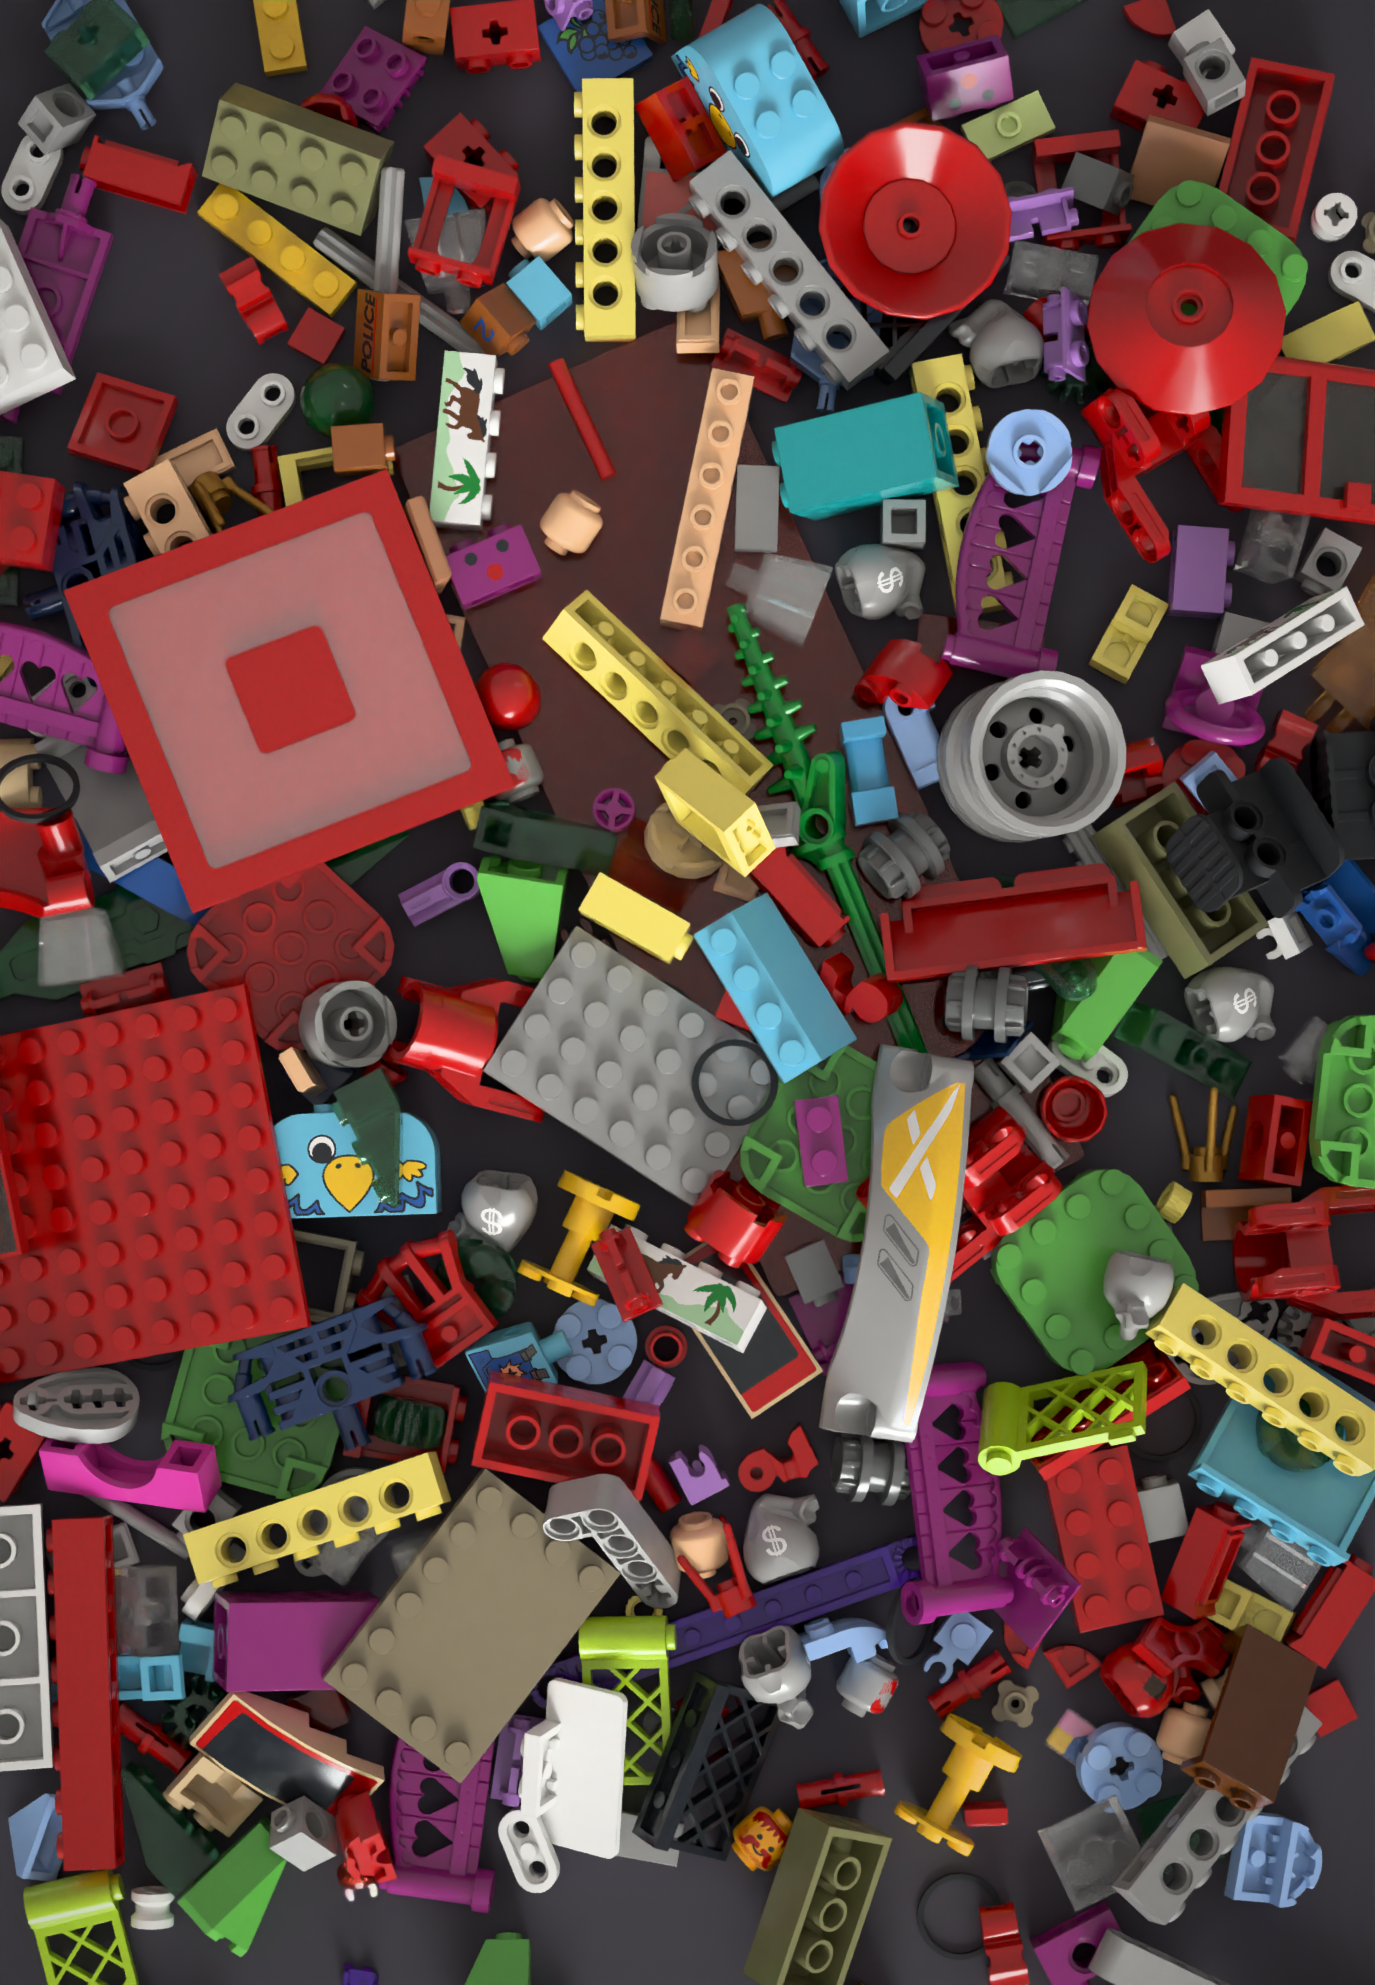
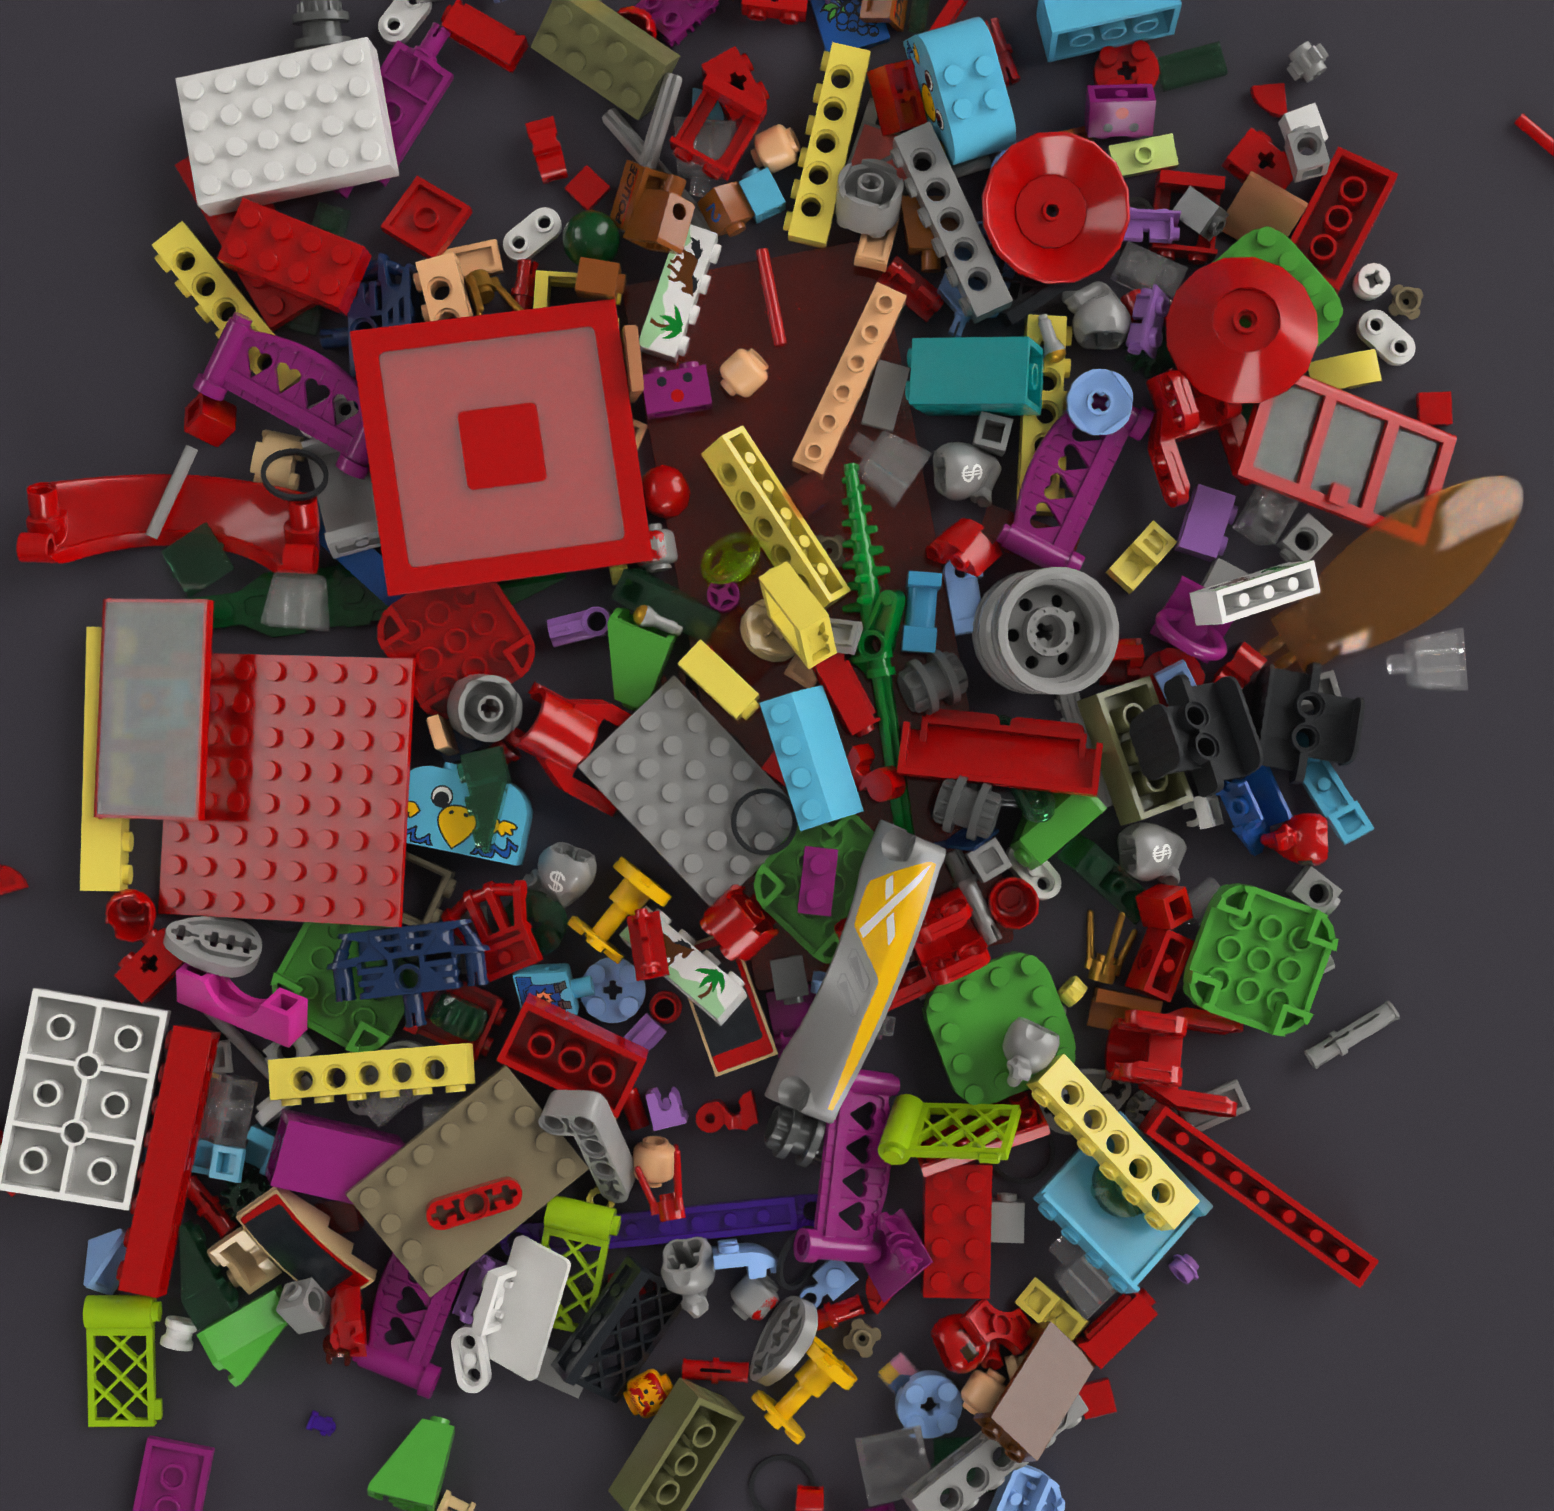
camera: 15 degrees right, 0 degrees up
(136, 989) = (336, 642): red hinge -> none
(277, 249) = (574, 115): yellow plate -> none
(421, 353) = (662, 218): none -> dark orange torso
(510, 1626) = (496, 1188): none -> red beam
(523, 861) = (646, 617): none -> light grey piece
(617, 767) = (733, 563): none -> clear neon green piece
(780, 1537) = (715, 1171): light grey piece -> none
(918, 1729) = (784, 1340): none -> light grey piece
(955, 400) = (1053, 349): none -> light grey piece
(984, 1813) = (819, 1415): red tile -> none
(1071, 1662) = (912, 1317): red tile -> none
(1205, 1560) = (1030, 1265): red window -> none
(1264, 1067) = (1164, 906): none -> red brick

